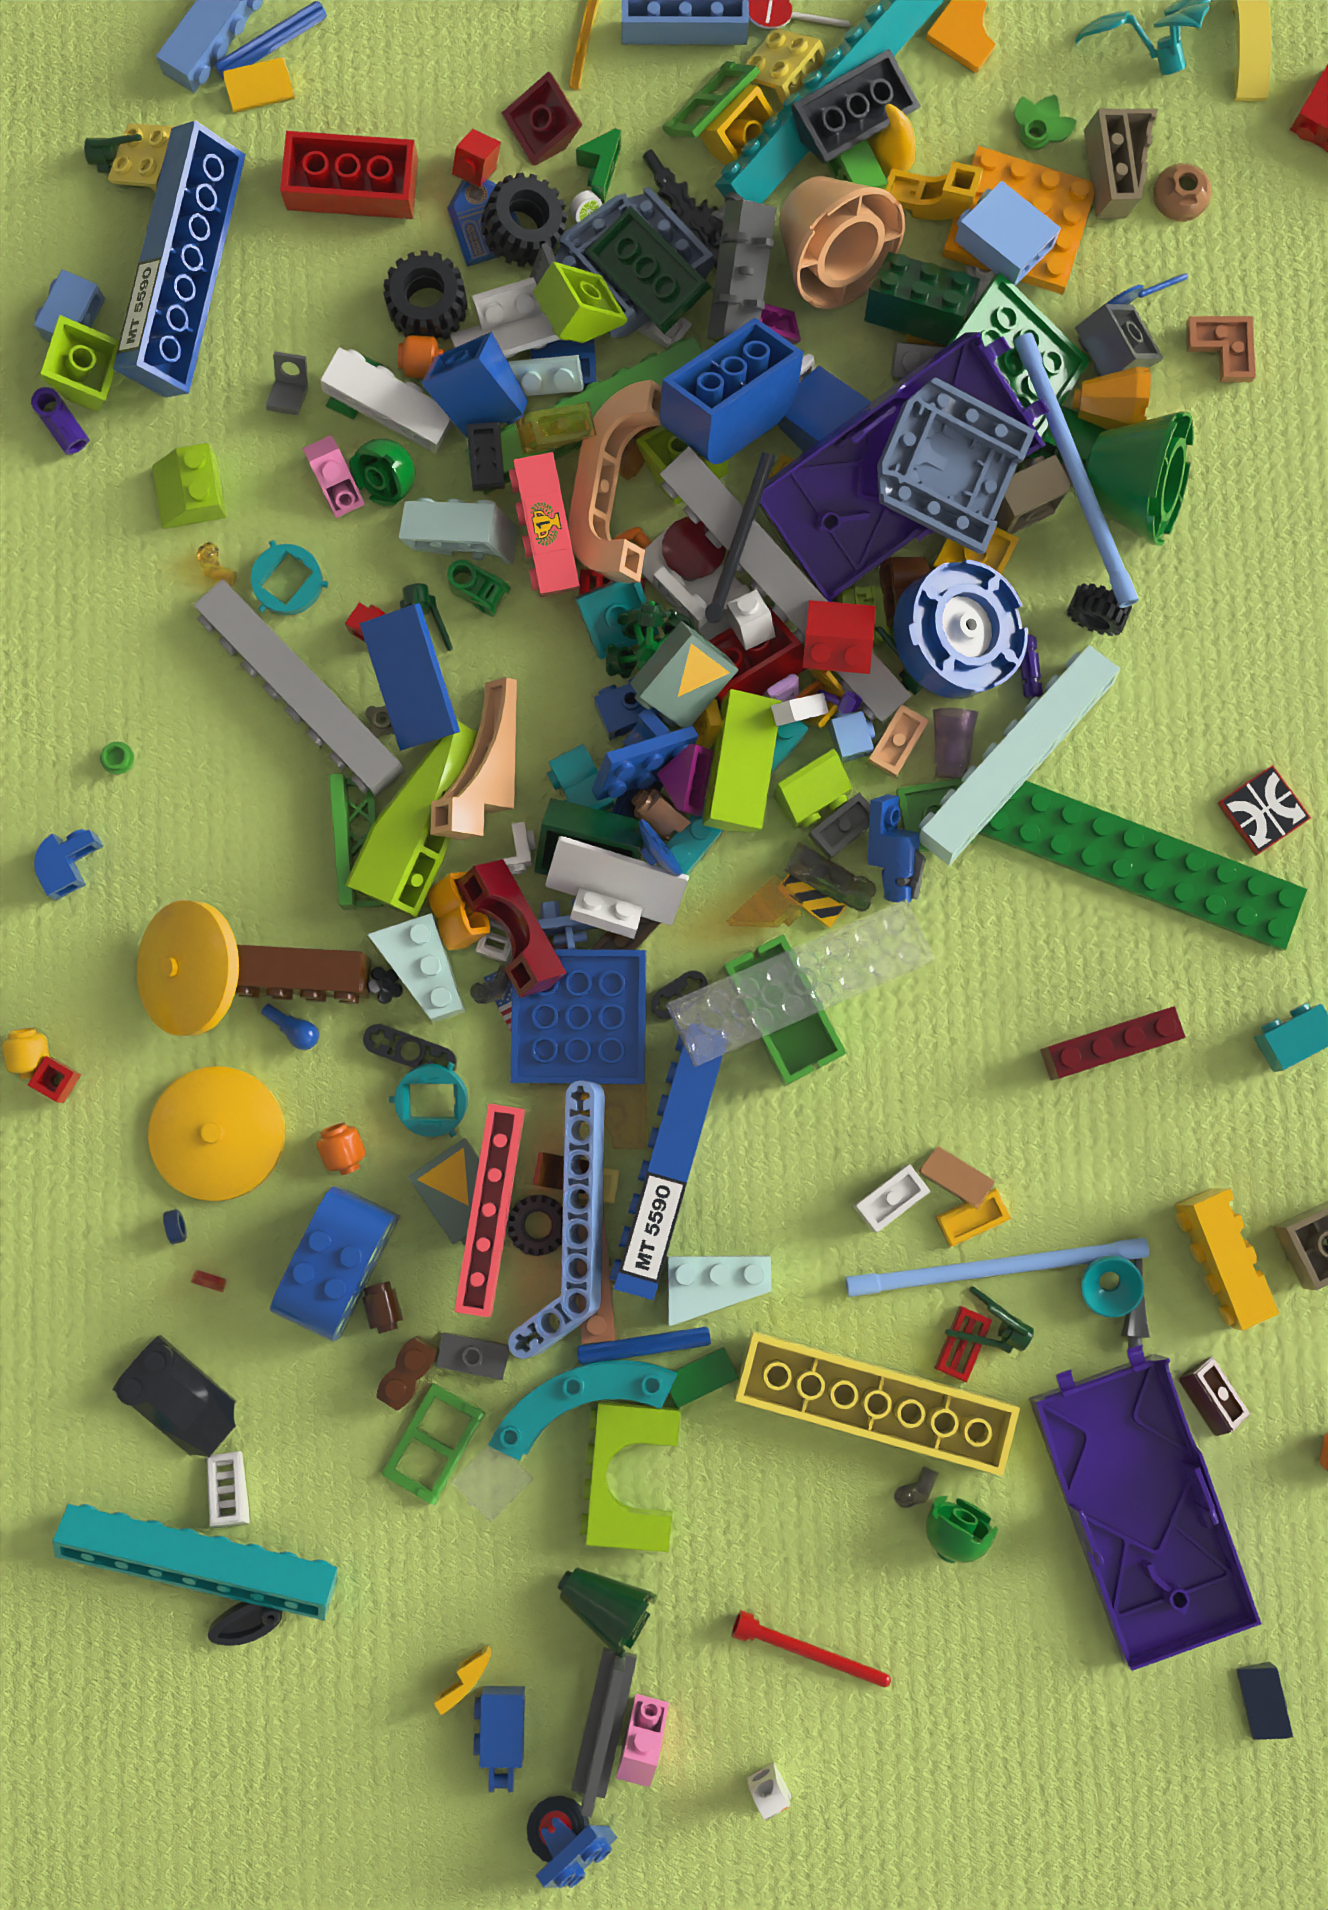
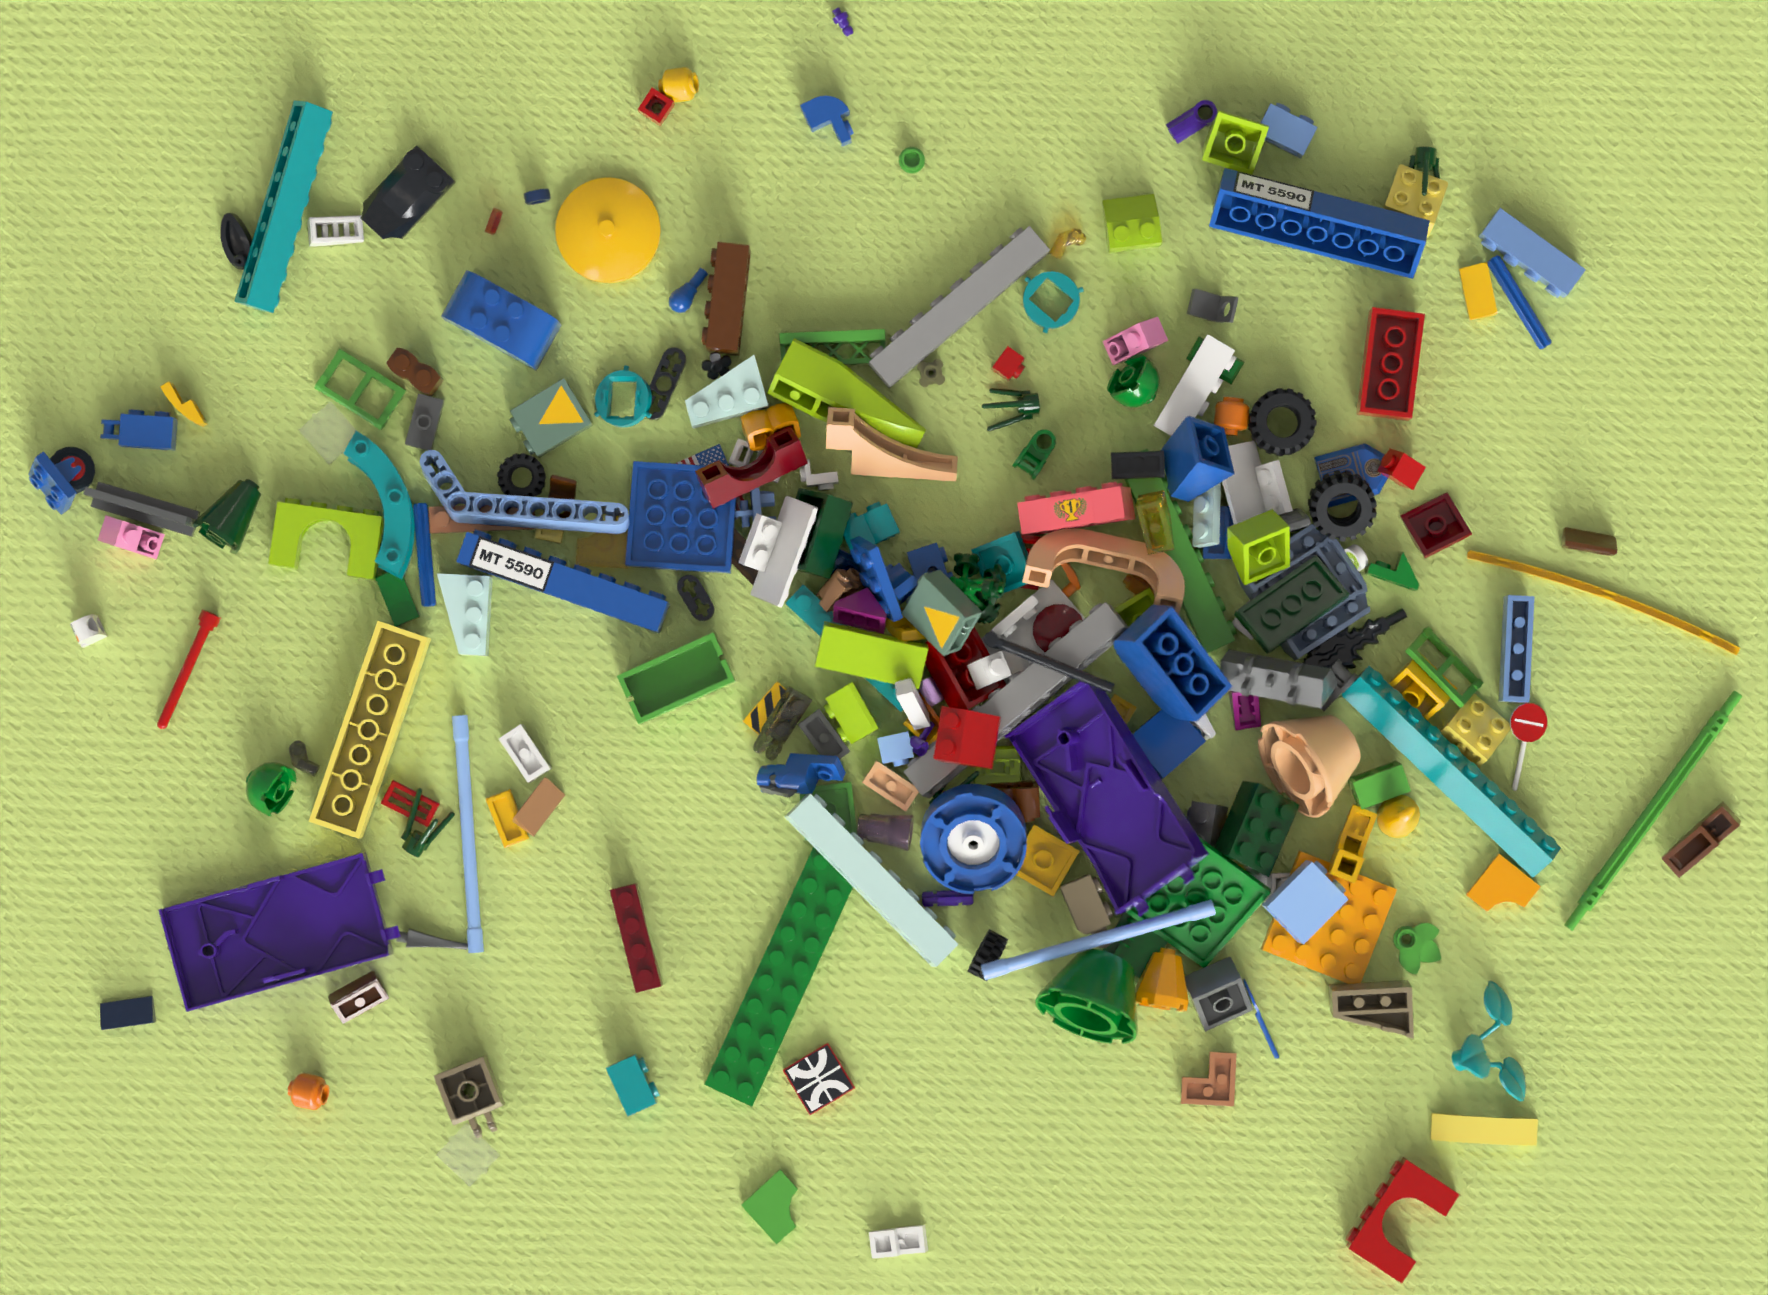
camera: 105 degrees right, 5 degrees up
(187, 968) = (735, 213): yellow dish -> none
(341, 1148) = (589, 327): orange head -> none
(382, 1307) = (465, 354): reddish brown brick -> none
(409, 677) = (958, 396): blue tile -> none
(458, 527) = (1083, 440): light aqua wedge -> none
(489, 1210) = (532, 440): coral brick -> none
(491, 990) = (707, 449): clear smoke arm -> none
(656, 850) = (803, 584): blue dish -> none
(768, 906) = (760, 672): clear yellow slope -> none
(799, 983) = (694, 691): clear plate -> none
(852, 107) = (1426, 785): black slope -> none
(951, 463) = (1097, 833): sand blue wedge -> none
(1114, 1301) = (435, 920): teal piece -> none
(1179, 203) = (1337, 1054): medium nougat piece -> none
(1226, 1258) = (463, 1013): yellow wedge -> none

